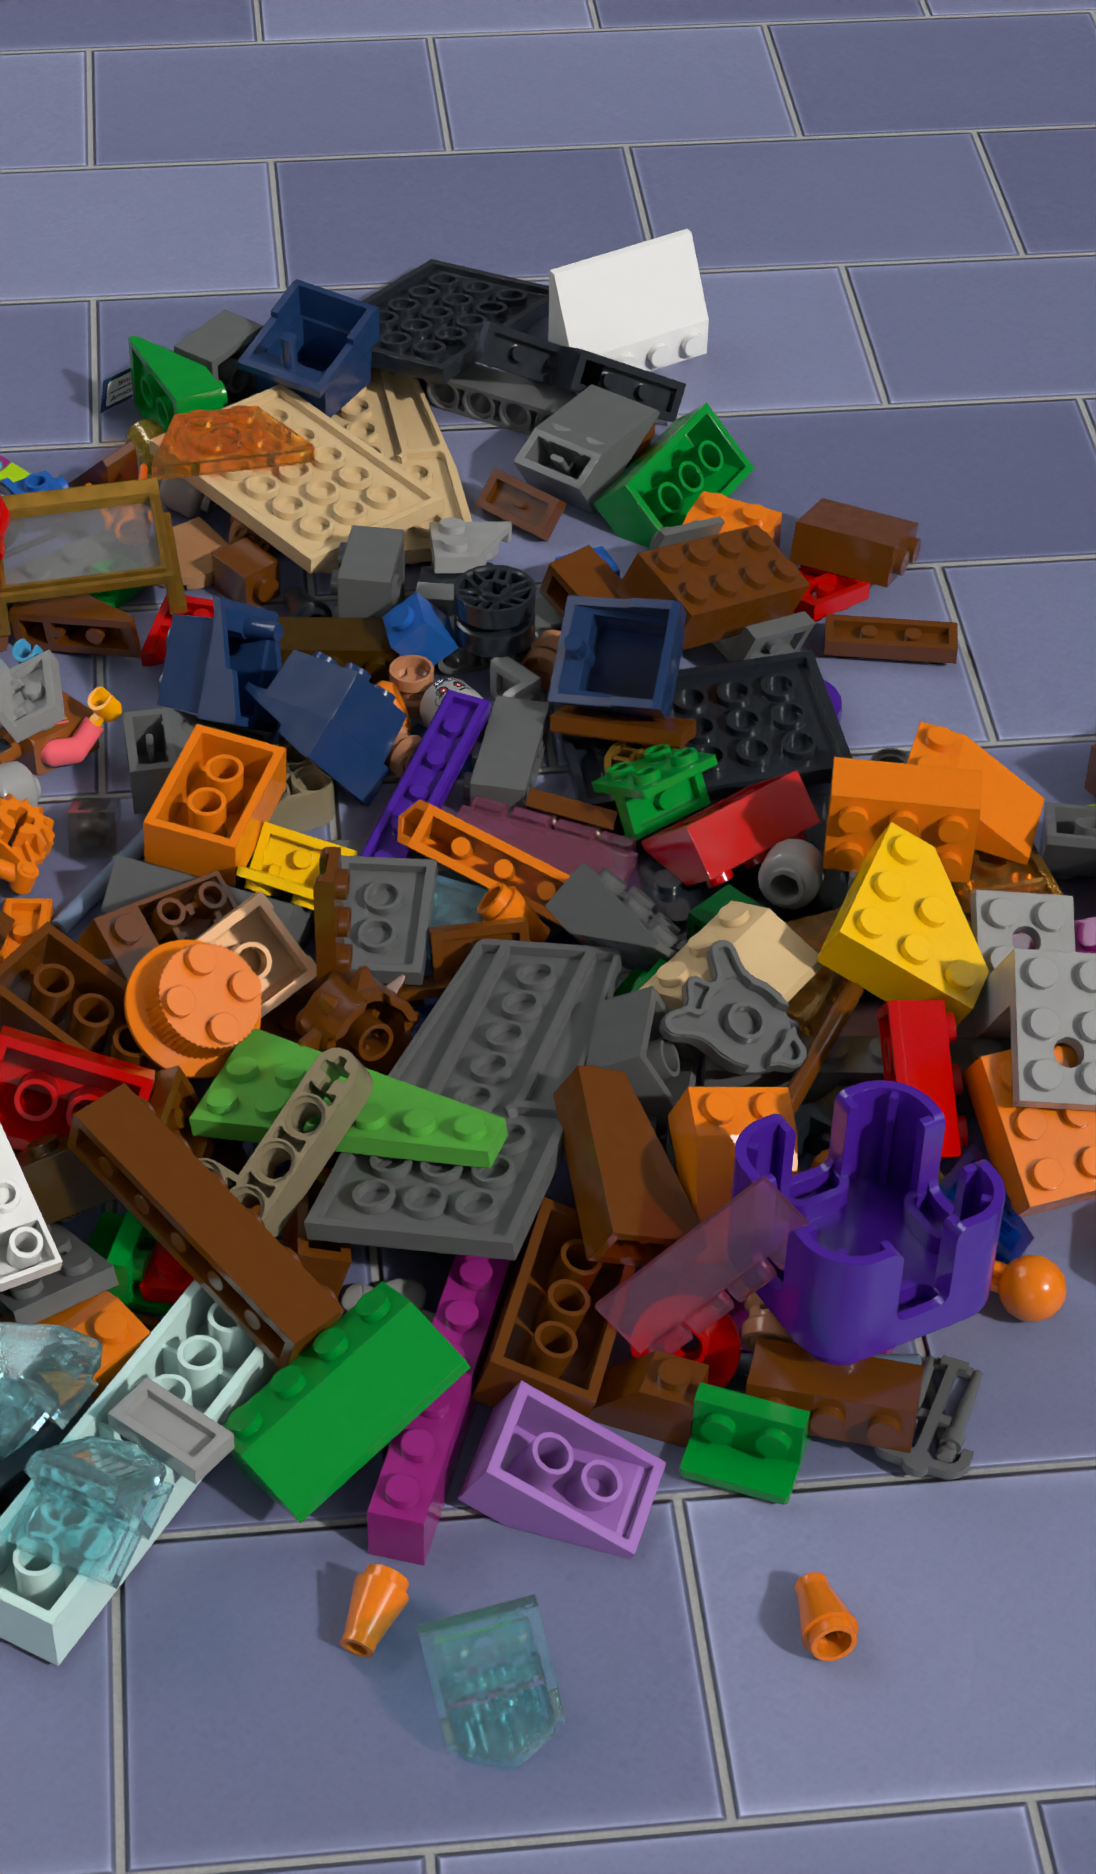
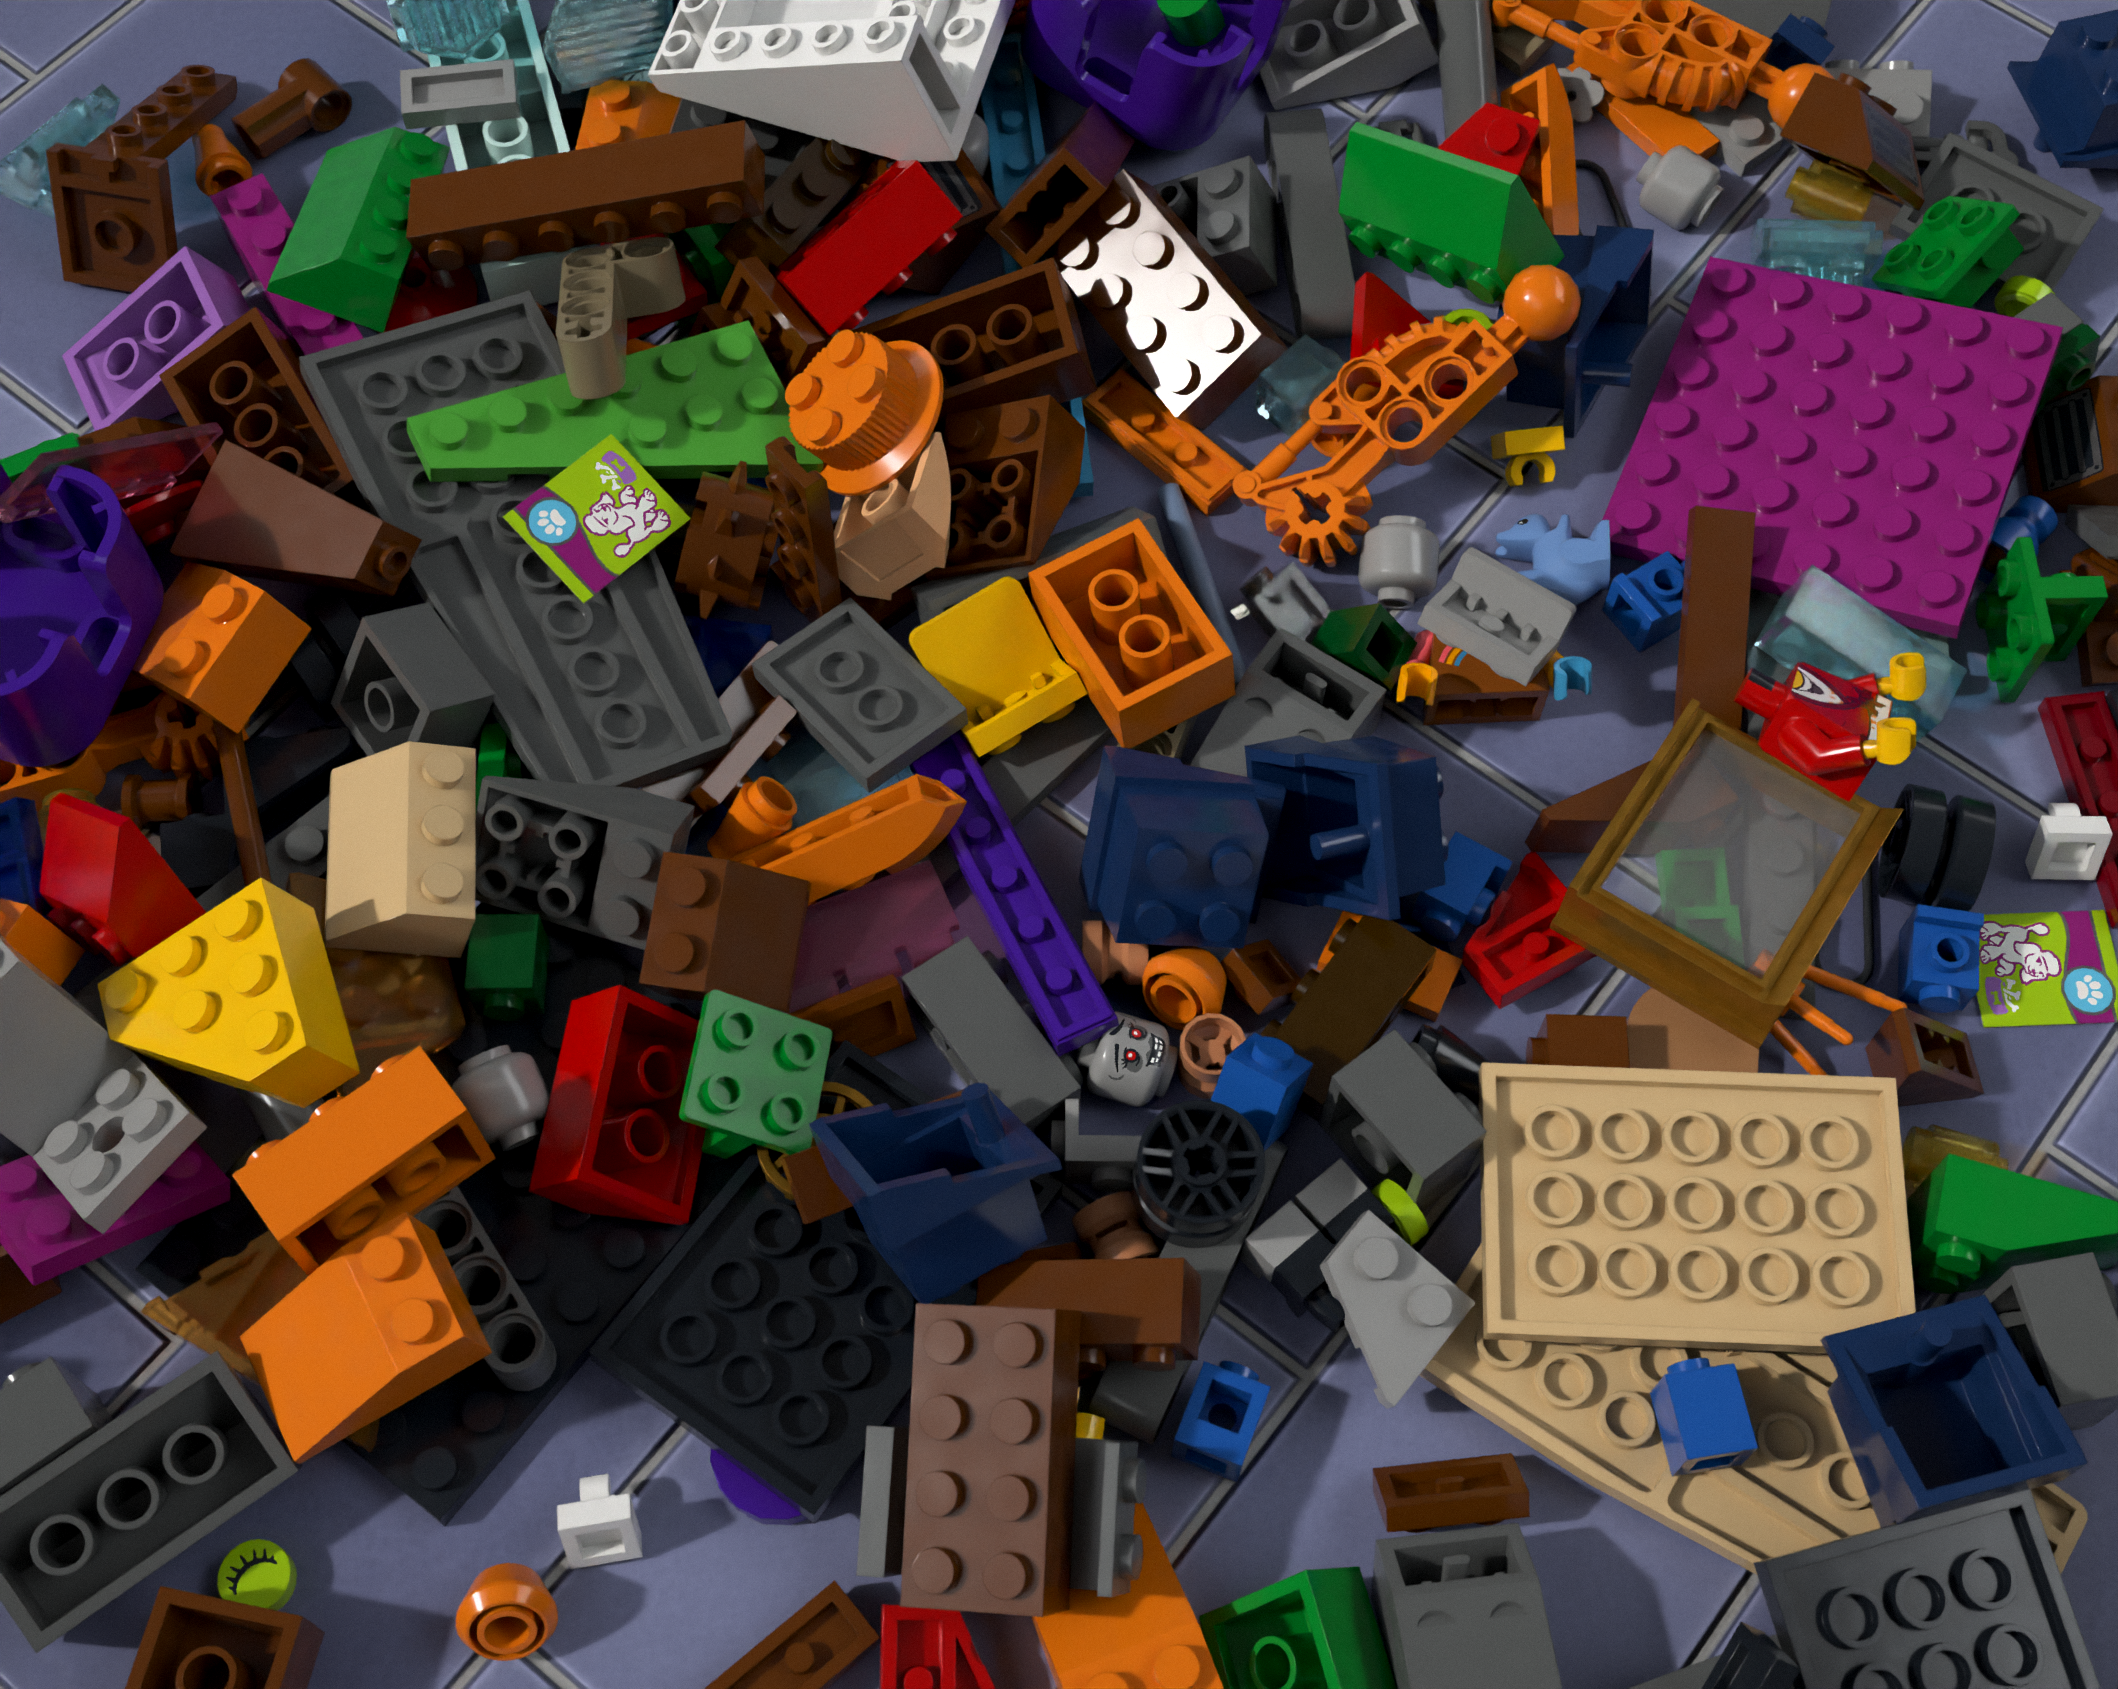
camera: 135 degrees right, 20 degrees up
(95, 763) = (1367, 642): none -> dark green brick
(227, 442) = (1807, 1146): clear orange wing -> none
(256, 1607) = (303, 100): none -> reddish brown piece
(395, 432) = (1702, 1417): none -> blue brick
(409, 581) = (1409, 1220): none -> lime tile
(428, 1058) = (596, 518): none -> sticker
(434, 1589) = (117, 189): none -> reddish brown bracket
(623, 841) = (724, 931): none -> reddish brown slope
(735, 1018) = (340, 780): dark grey tile -> none
(906, 719) = (599, 1526): none -> white tile
(989, 724) = (506, 1613): none -> orange cone

